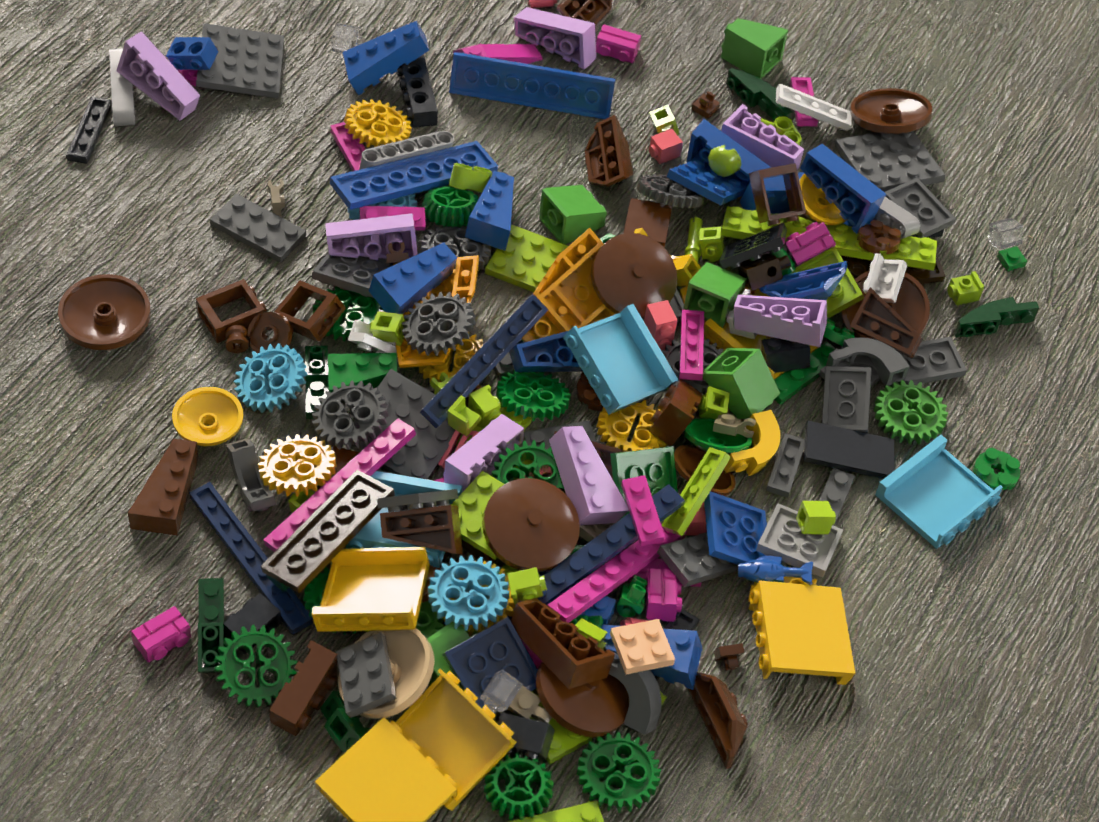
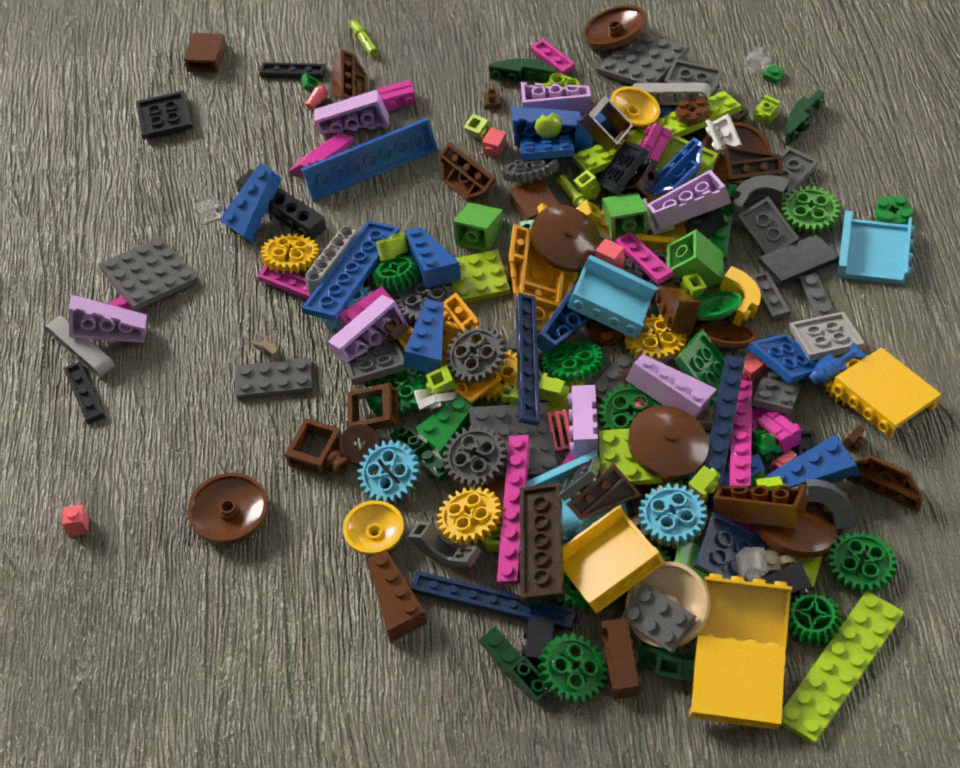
camera: 25 degrees left, 0 degrees up
(161, 634) = (487, 695): dark pink brick -> none
(192, 53) = (115, 287): blue brick -> none
(461, 417) = (549, 406): lime panel -> none
(642, 510) = (729, 382): dark pink plate -> none
(642, 646) = (813, 468): light nougat plate -> none
(697, 490) = (744, 345): lime plate -> none
(730, 425) = (716, 293): dark tan plate -> none
(753, 46) = (488, 41): bright green slope -> none
(813, 107) = (566, 55): white plate -> none
(815, 517) = (825, 314): lime brick -> none
(843, 186) = (644, 91): blue wedge -> none

